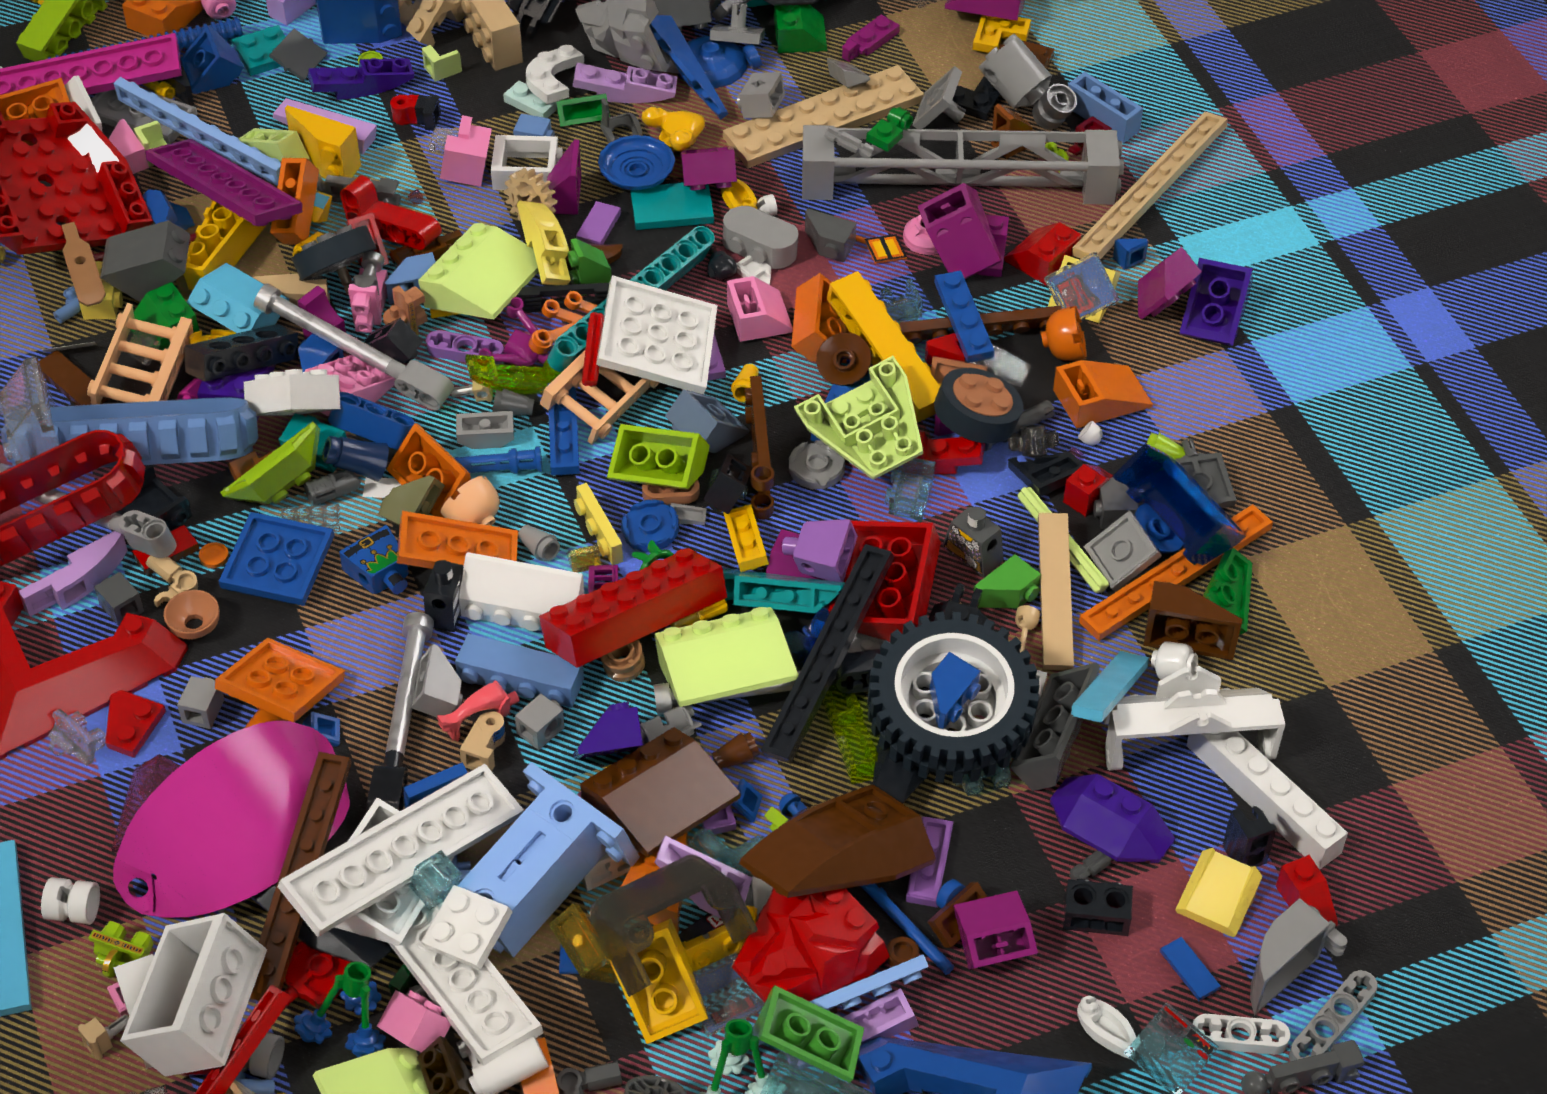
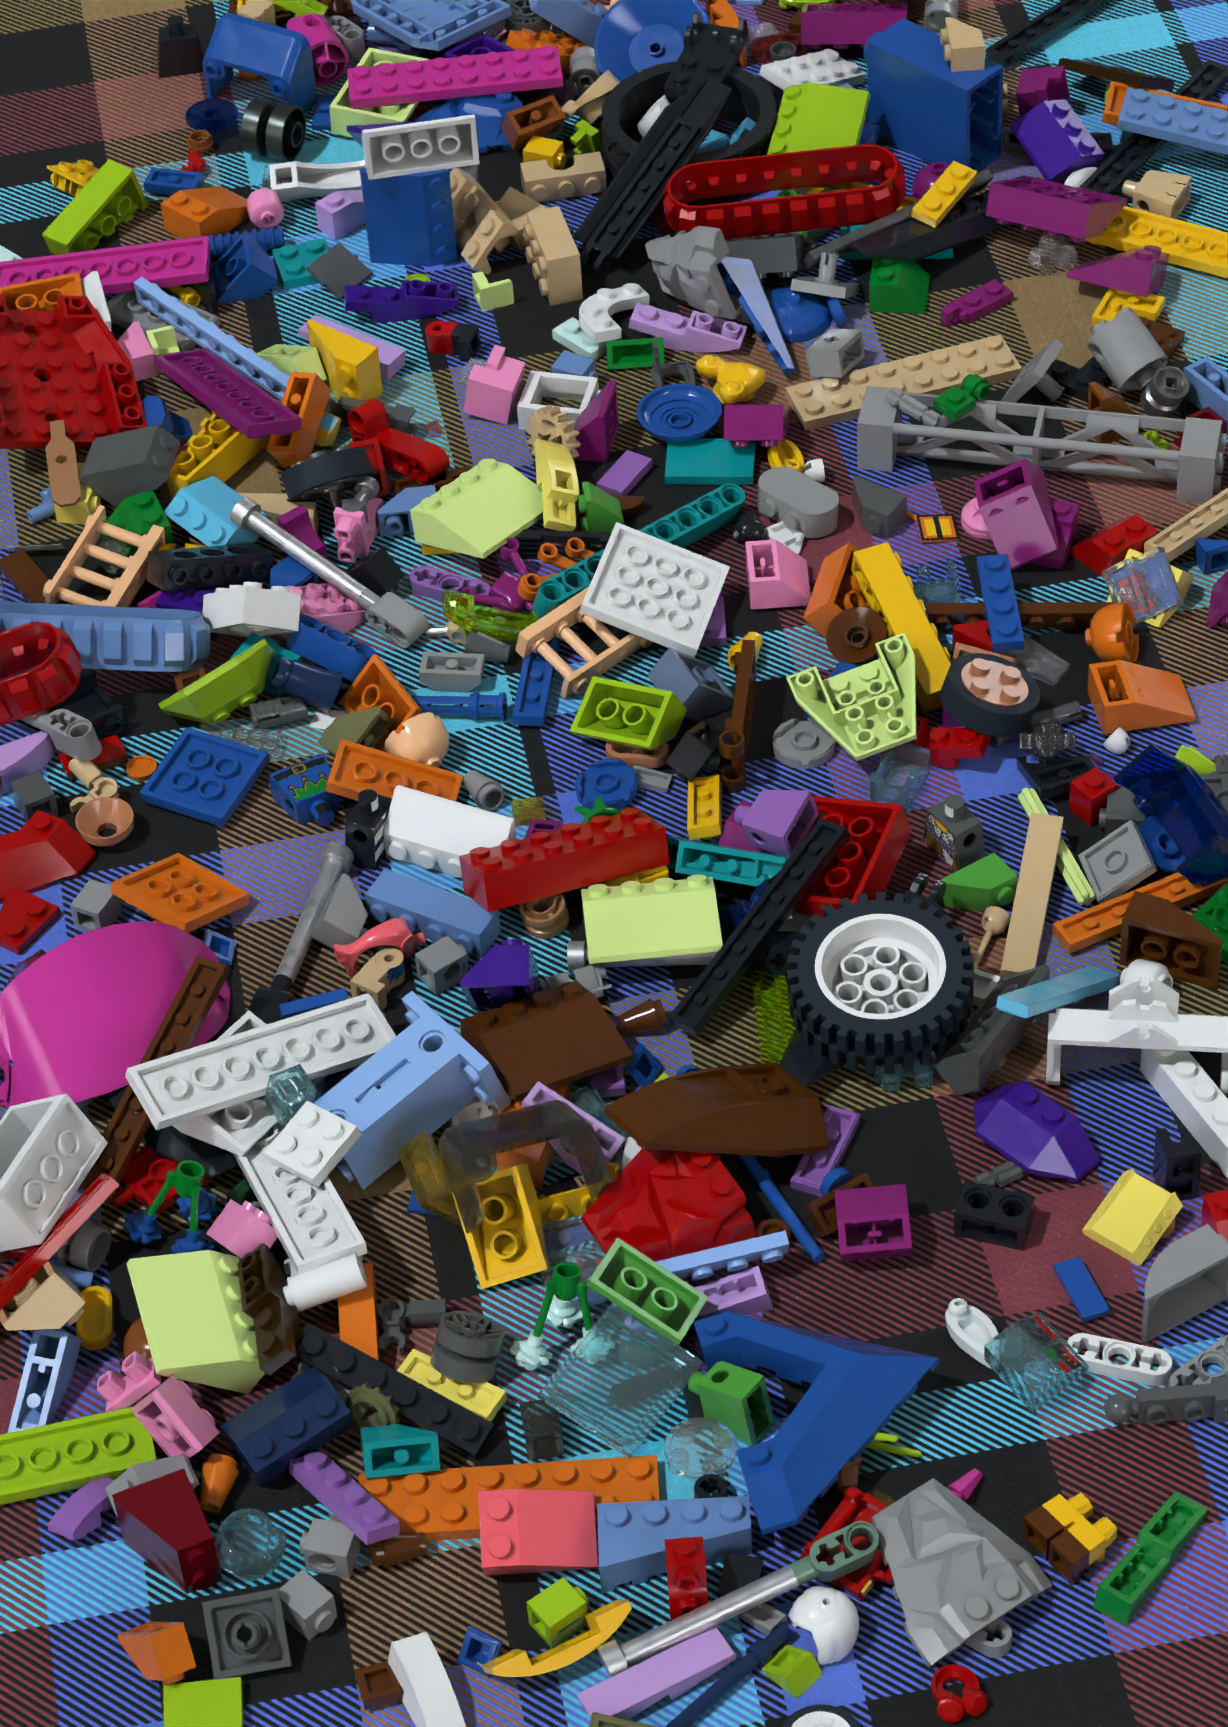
camera: 15 degrees right, 5 degrees down
(407, 308) = (391, 539): nougat hips -> none
(590, 368) = (573, 616): red axle -> none
(598, 524) = (550, 778): light yellow plate -> none
(846, 73) = (938, 338): light grey slope -> none
(951, 686) = (880, 969): blue slope -> none

